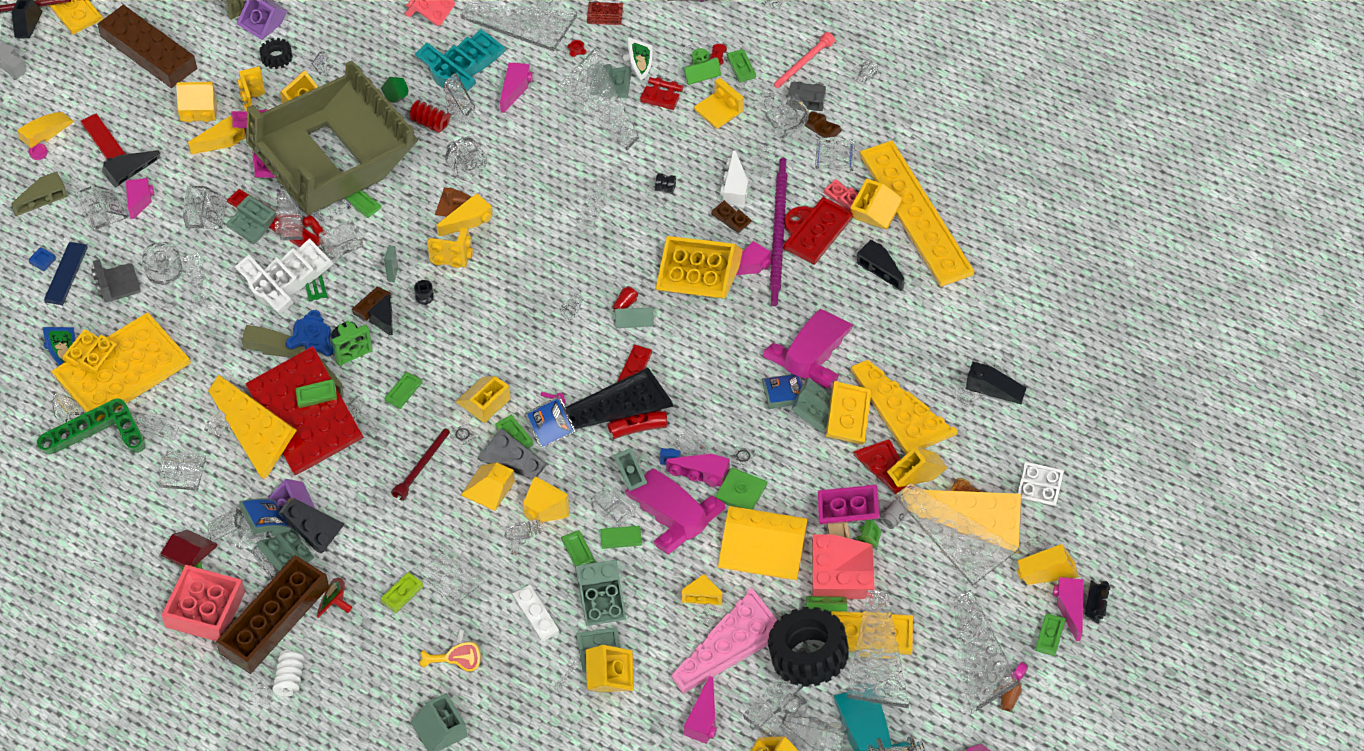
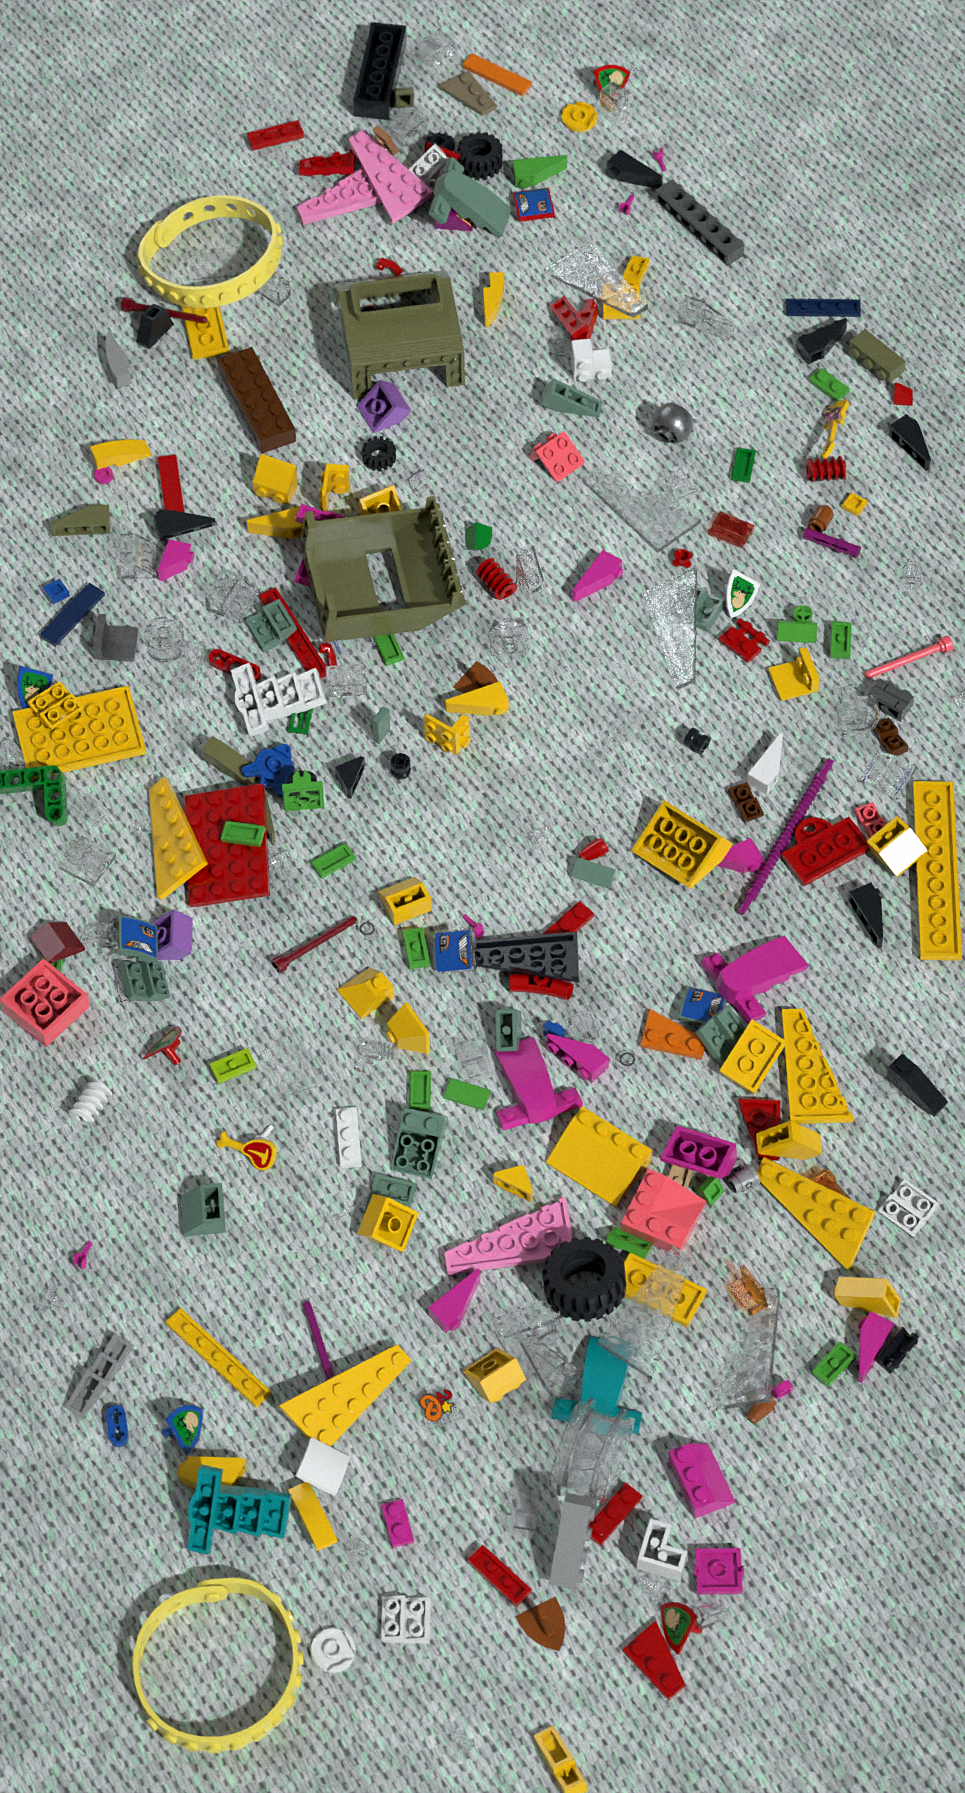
camera: 25 degrees right, 5 degrees up
(229, 259) = (230, 659): none -> red beam
(272, 614) = (102, 1039): reddish brown brick -> none
(290, 219) = (304, 644): clear slope -> none
(311, 524) = (178, 964): black wing -> none
(368, 302) = (343, 755): reddish brown plate -> none
(465, 59) = (558, 530): teal slope -> none
(512, 454) = (403, 970): wing -> none
(717, 52) = (824, 617): red piece -> none
(741, 489) = (607, 1094): bright green plate -> none
(769, 424) = (670, 1037): none -> orange wing
(949, 602) = (748, 1292): none -> clear orange panel
(961, 539) = (796, 1234): clear wing -> none

